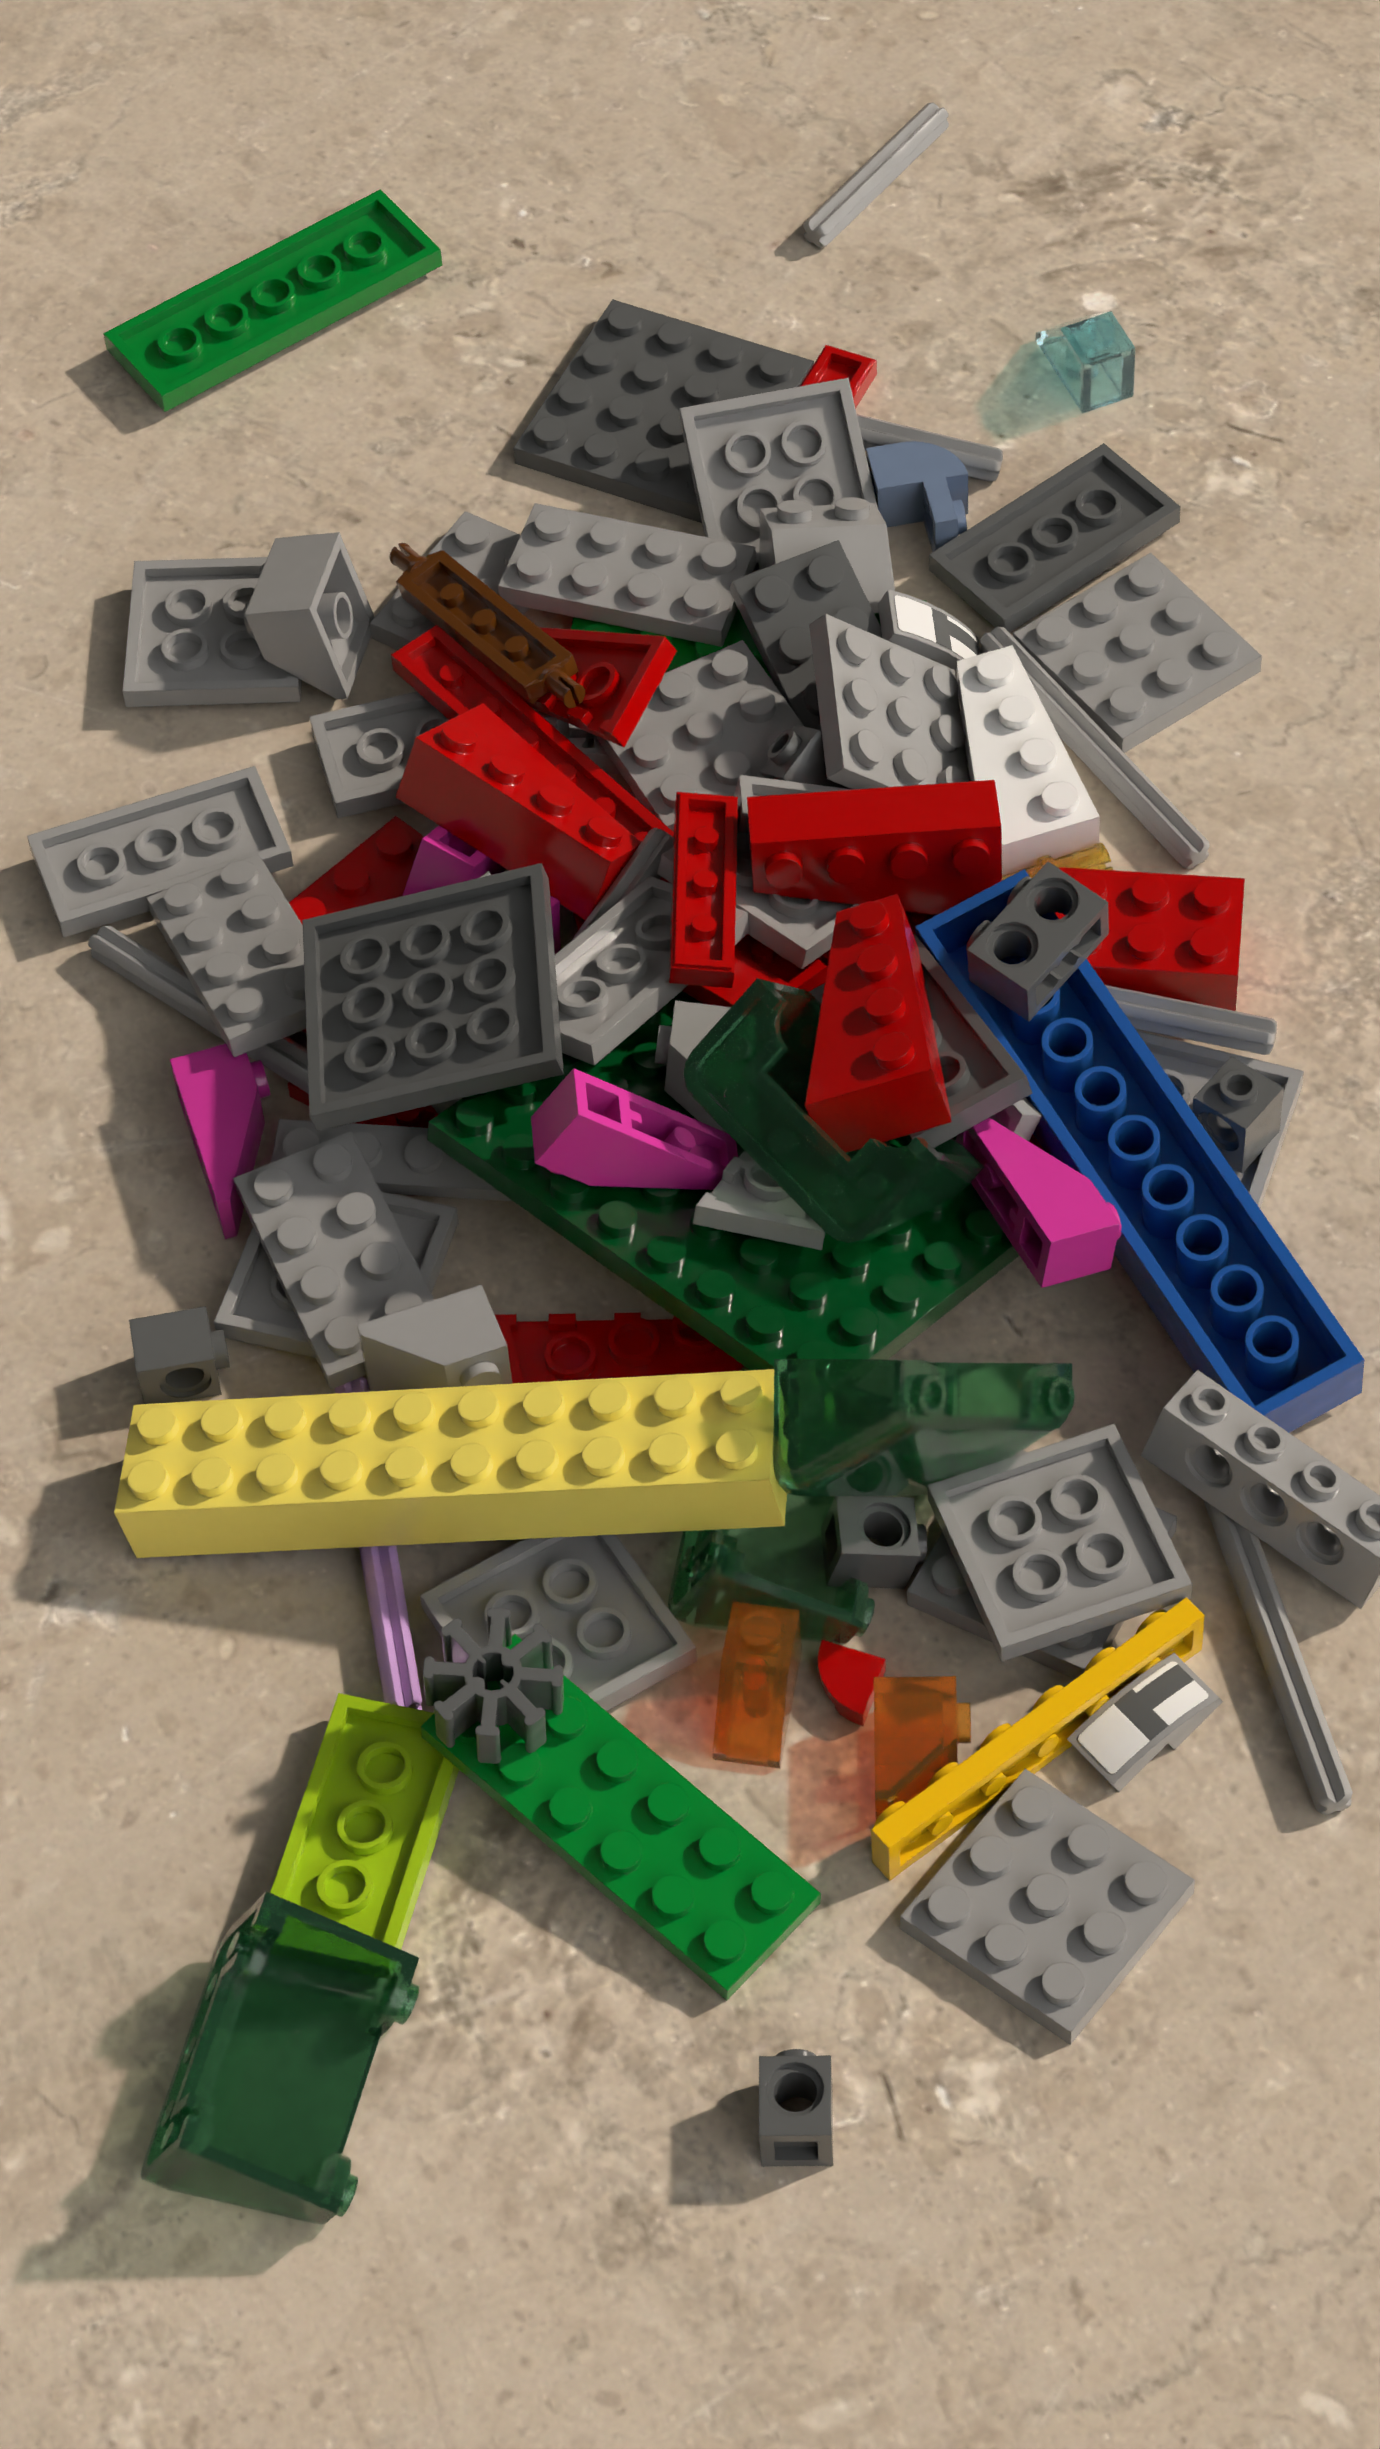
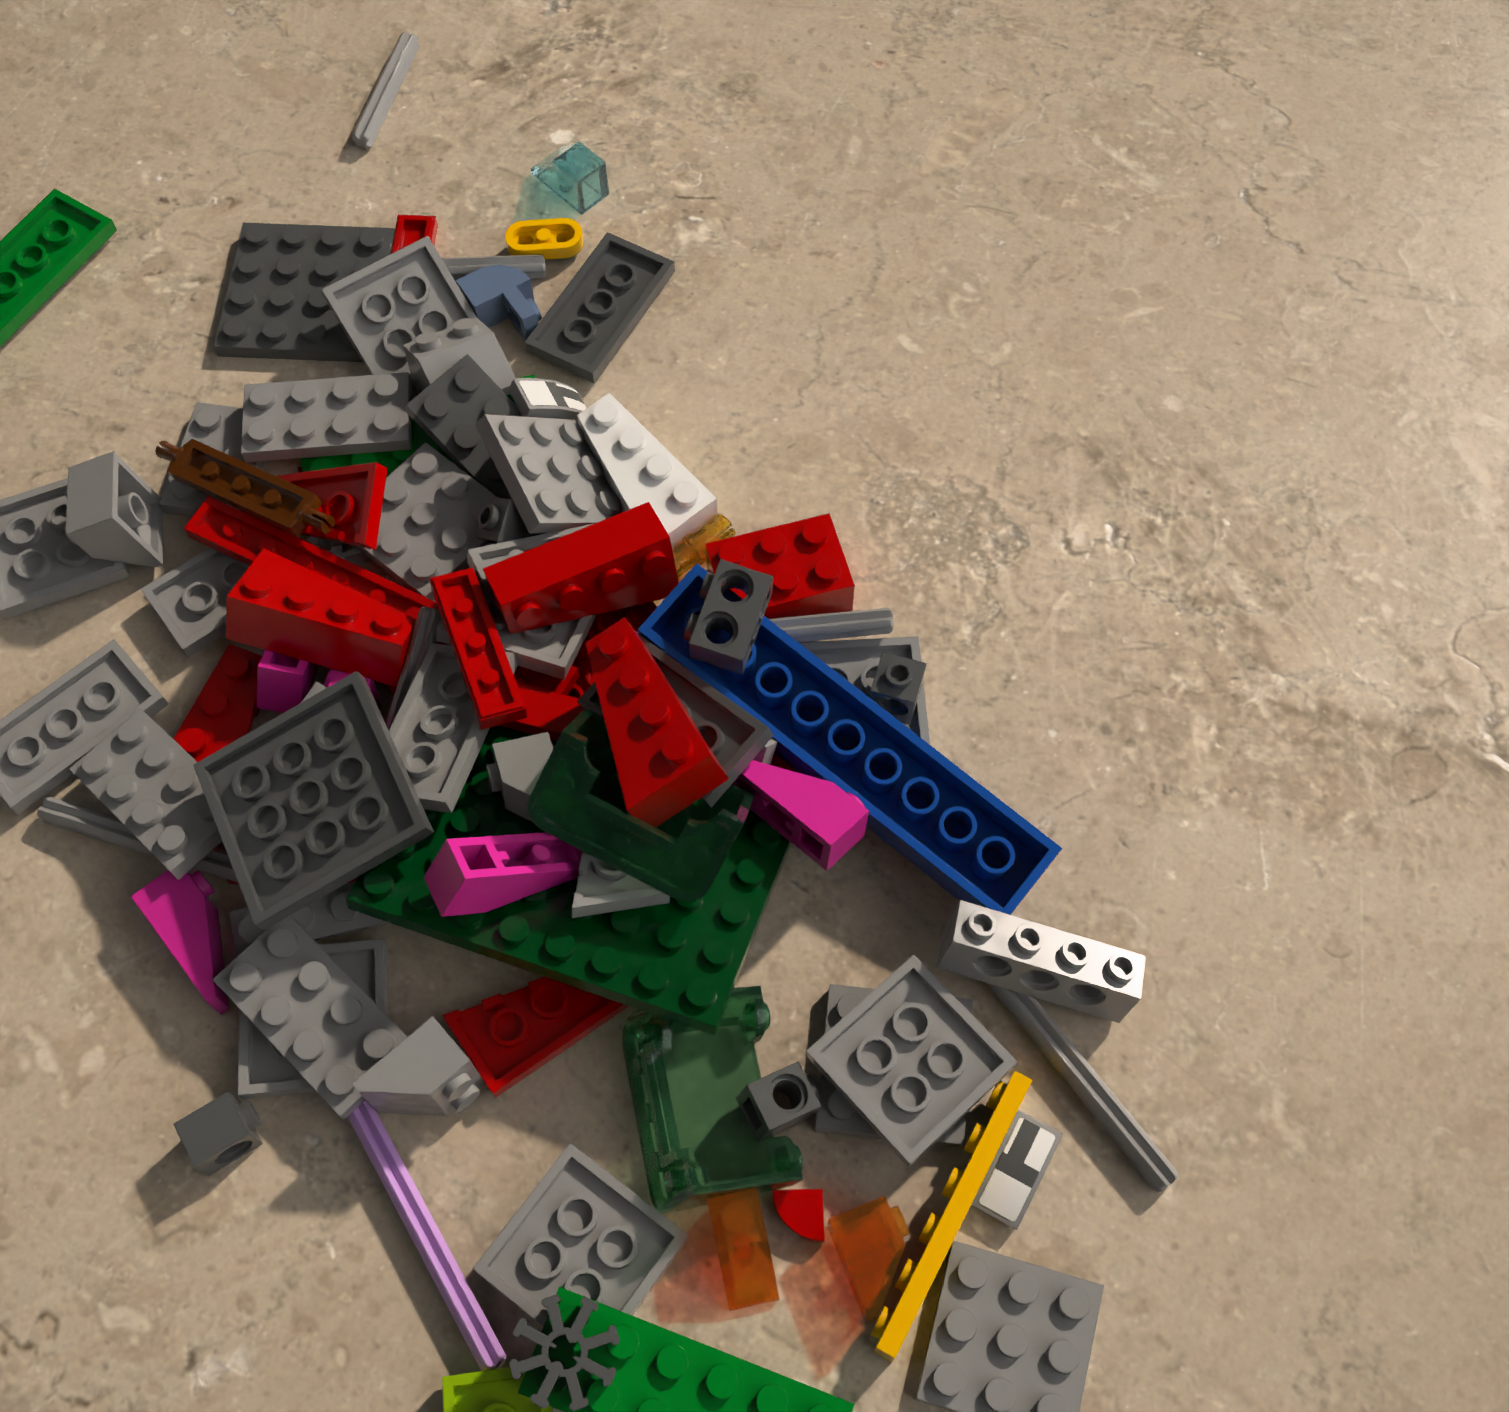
camera: 25 degrees left, 10 degrees up
(452, 1465) = (460, 1166): light yellow brick -> none
(906, 1422) = (811, 1002): clear green windscreen -> none
(1017, 428) = (546, 237): none -> yellow plate
(1108, 760) = (696, 451): light grey axle -> none
(1139, 651) = (684, 370): light grey plate -> none

